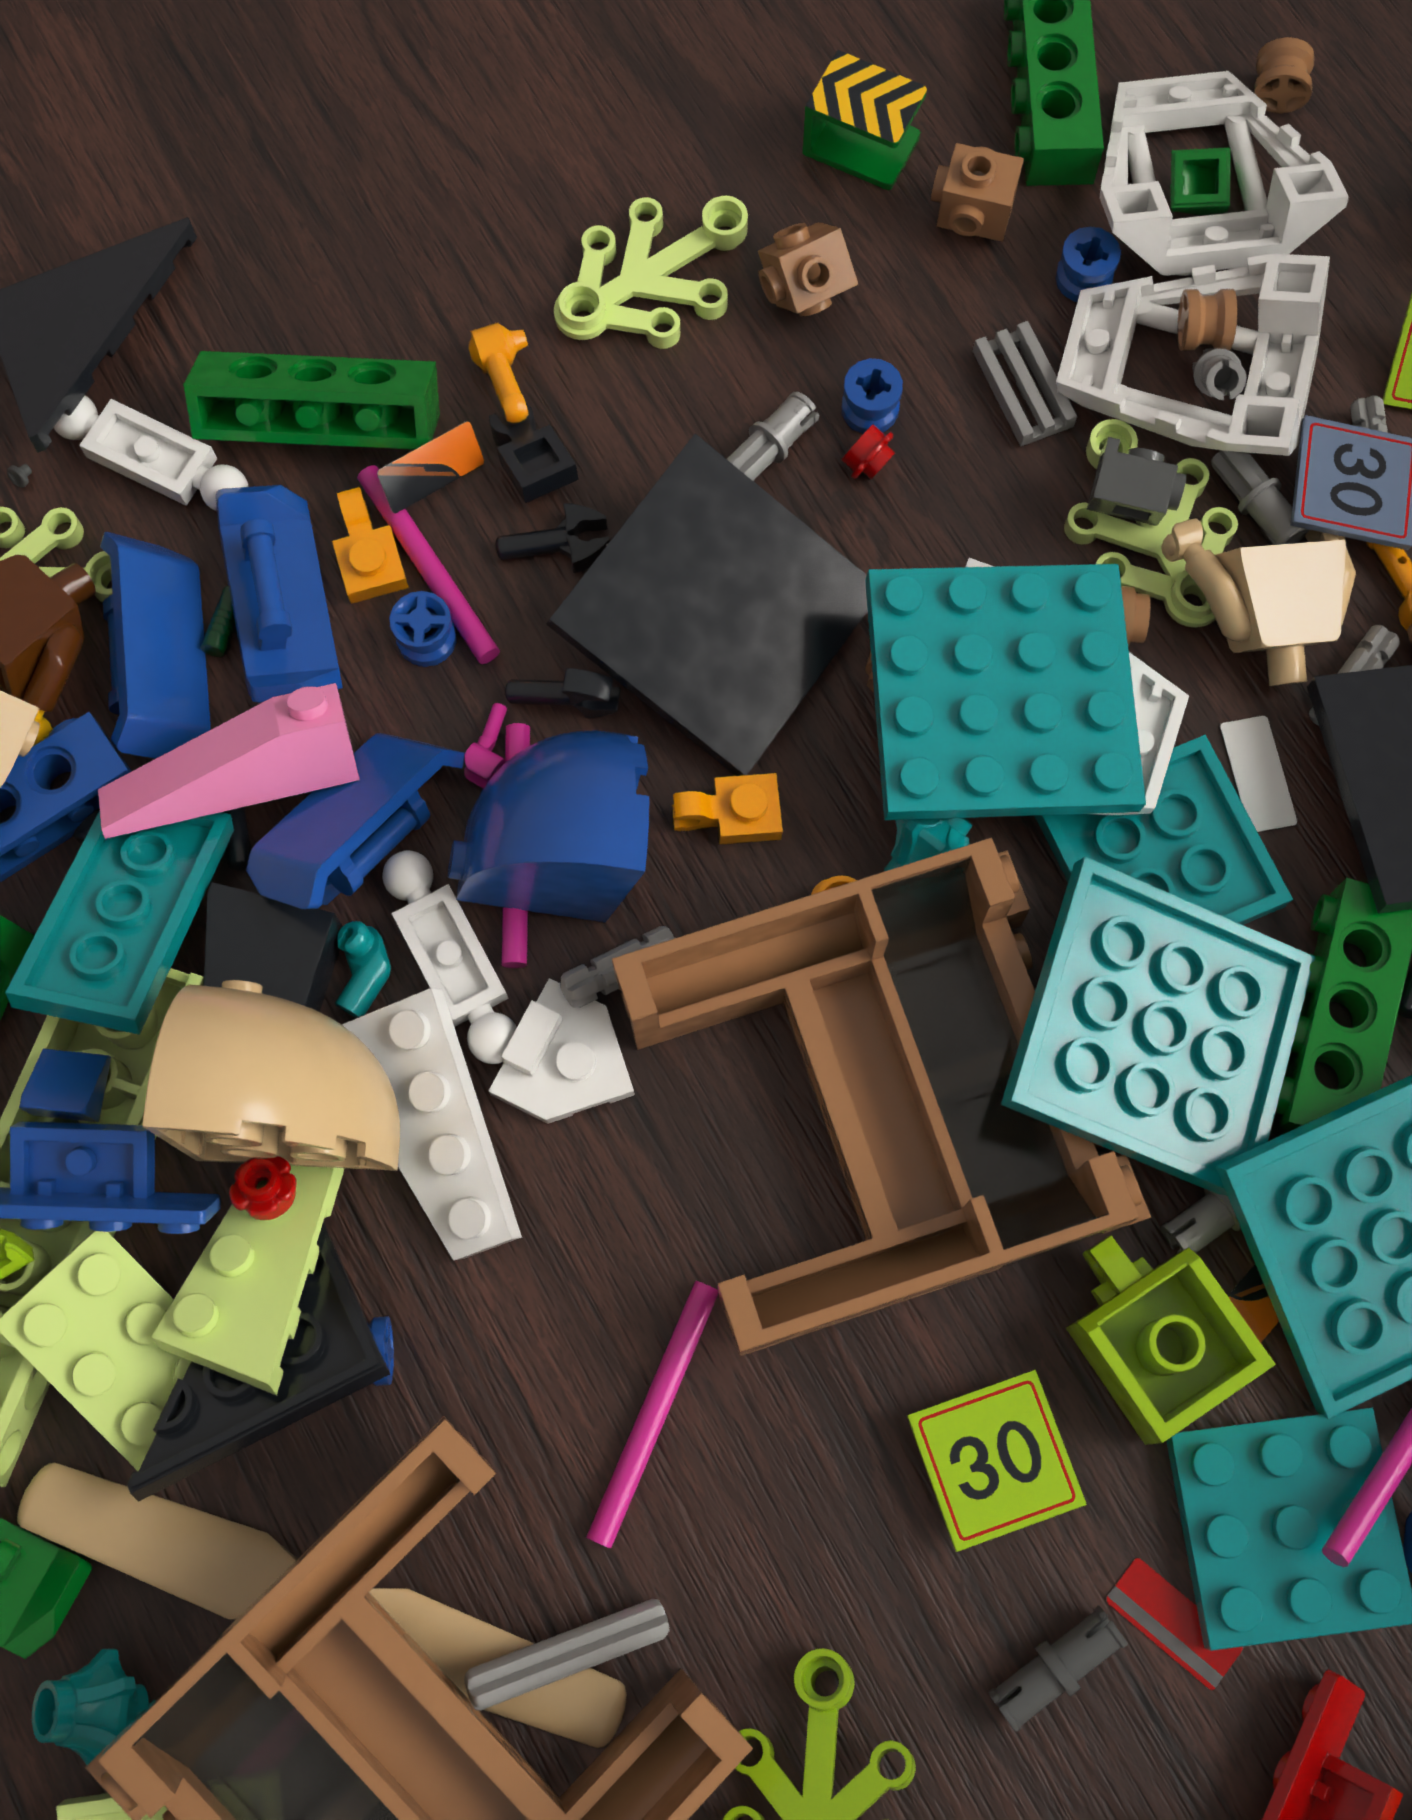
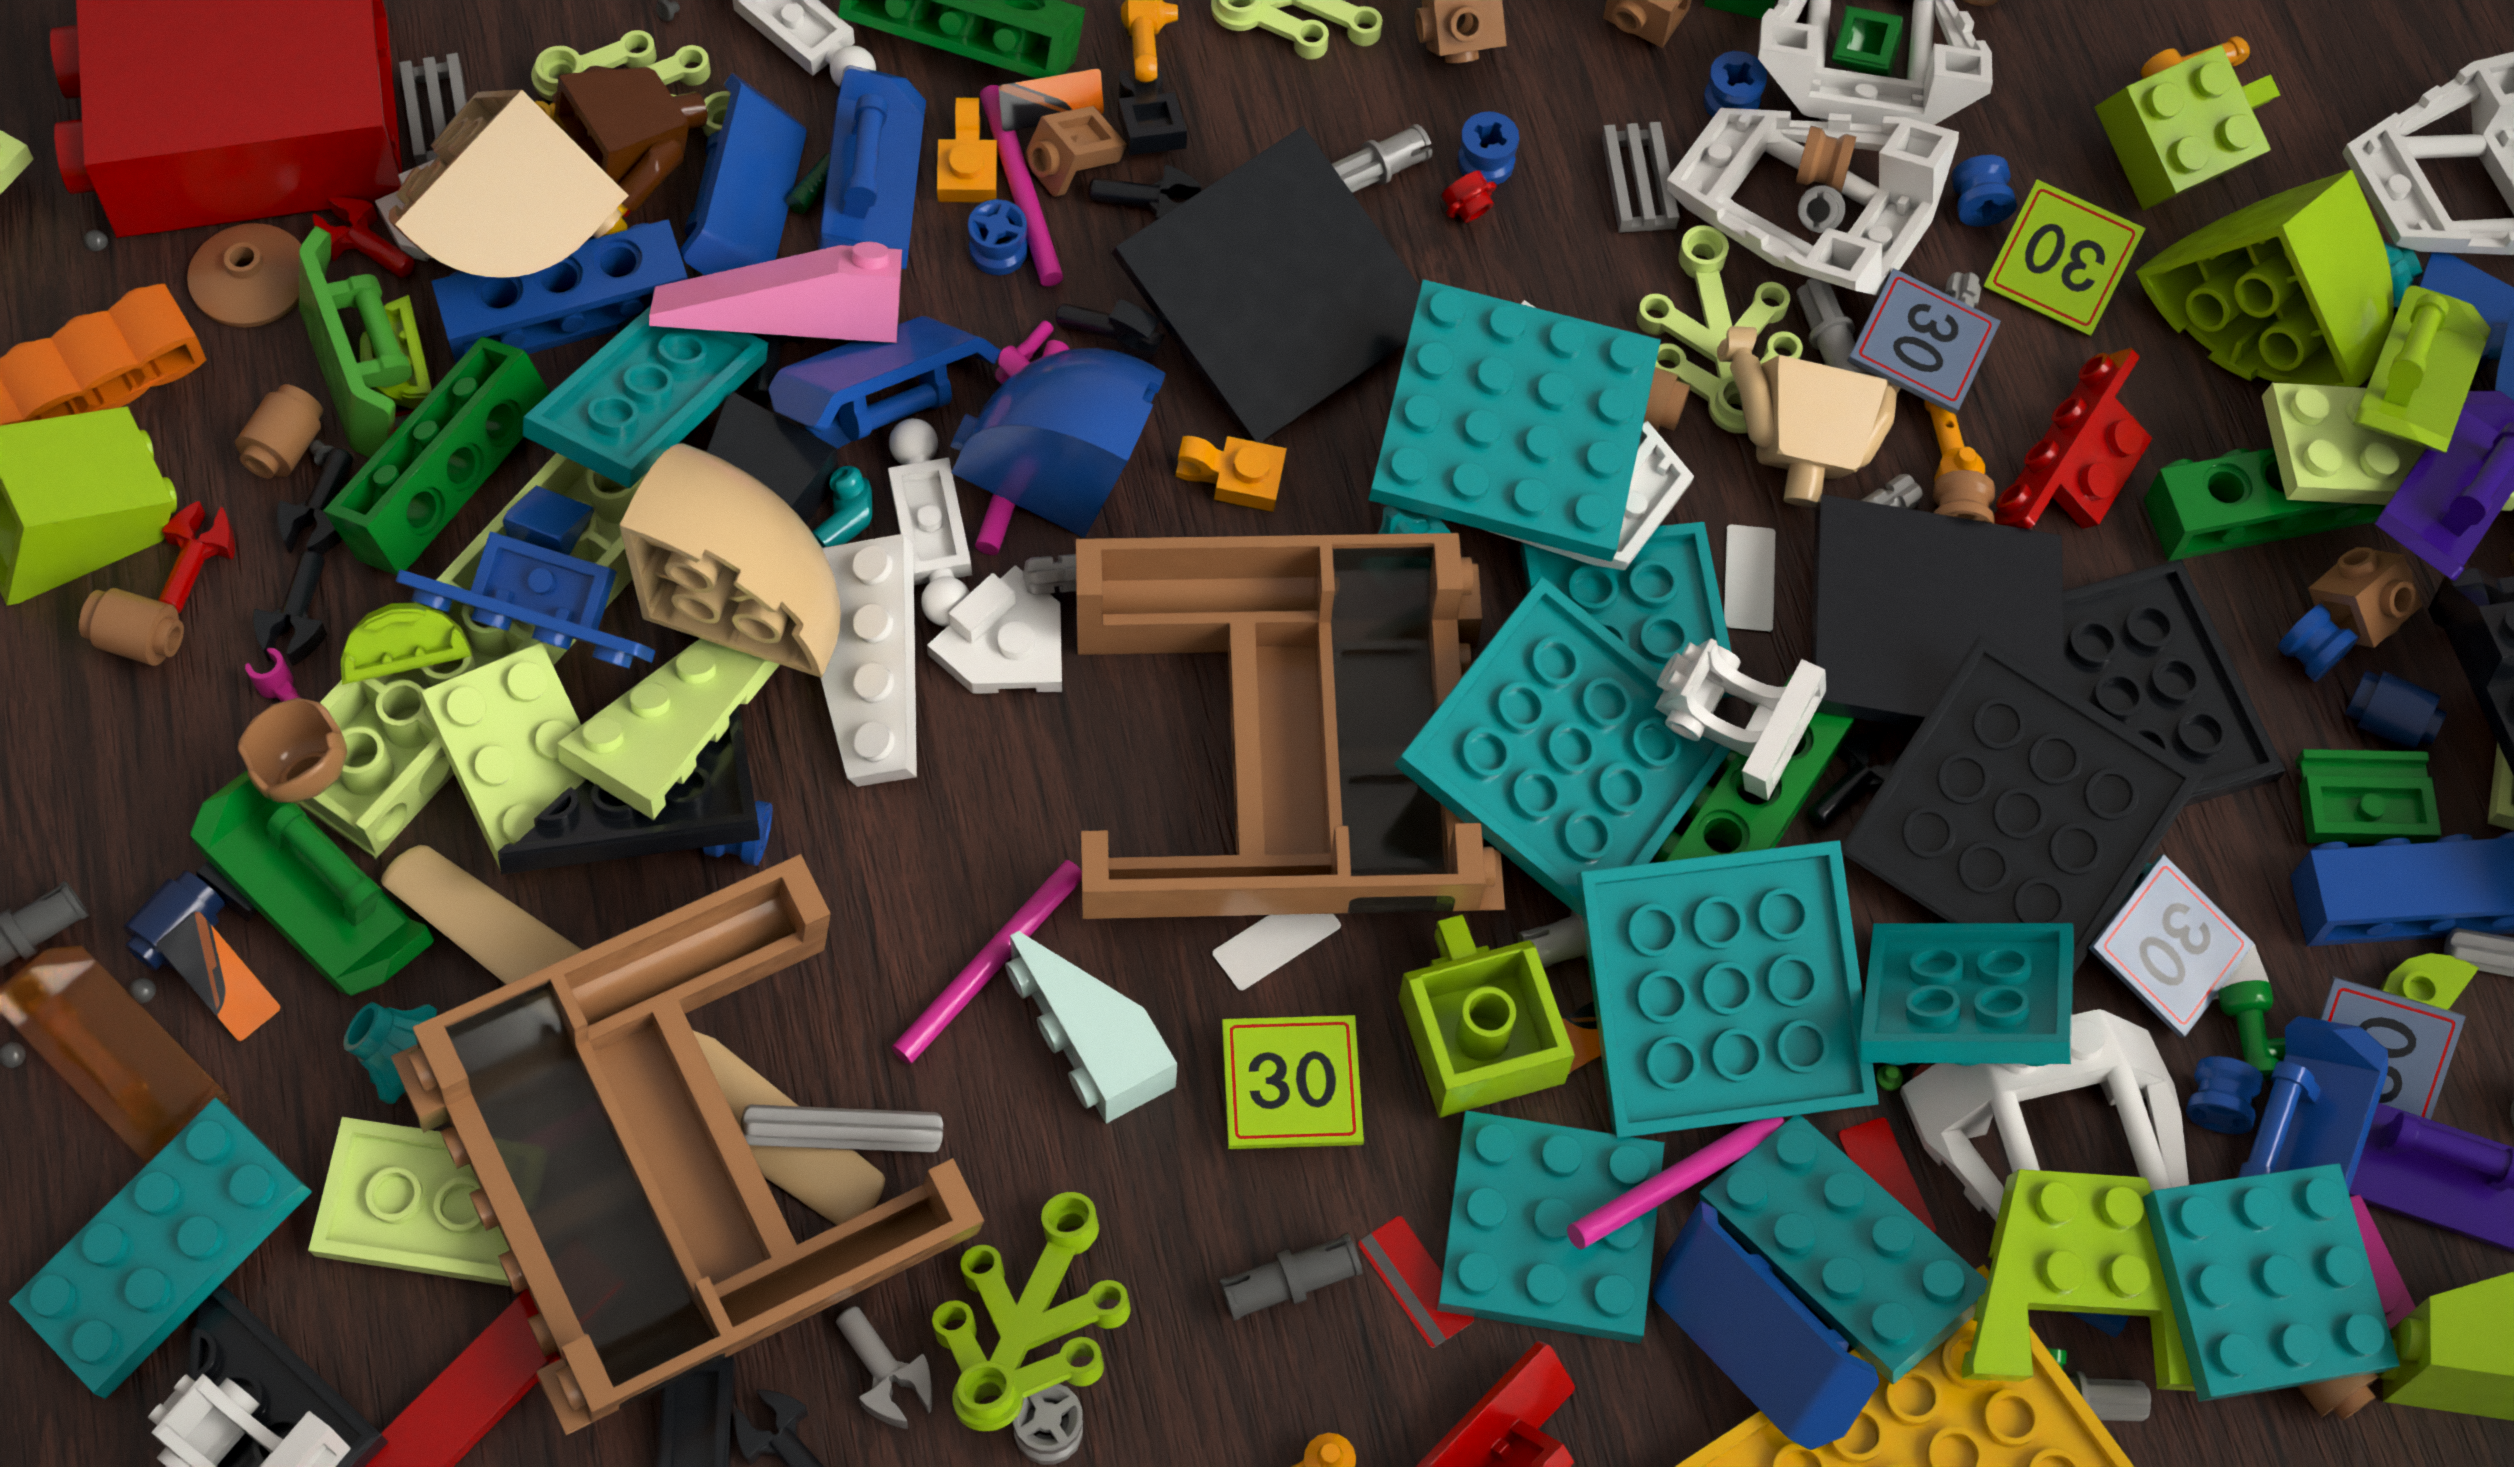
camera: 10 degrees right, 10 degrees down
(269, 1200) = (697, 651): red plate -> none
(466, 509) = (1069, 144): none -> medium nougat bracket
(796, 1467) = (1104, 1034): none -> light aqua slope
(910, 1324) = (1271, 944): none -> white sticker
(1135, 484) = (1707, 284): dark grey brick -> none
(1357, 948) = (1696, 684): none -> white tile
(1358, 306) = (1983, 190): none -> blue wheel

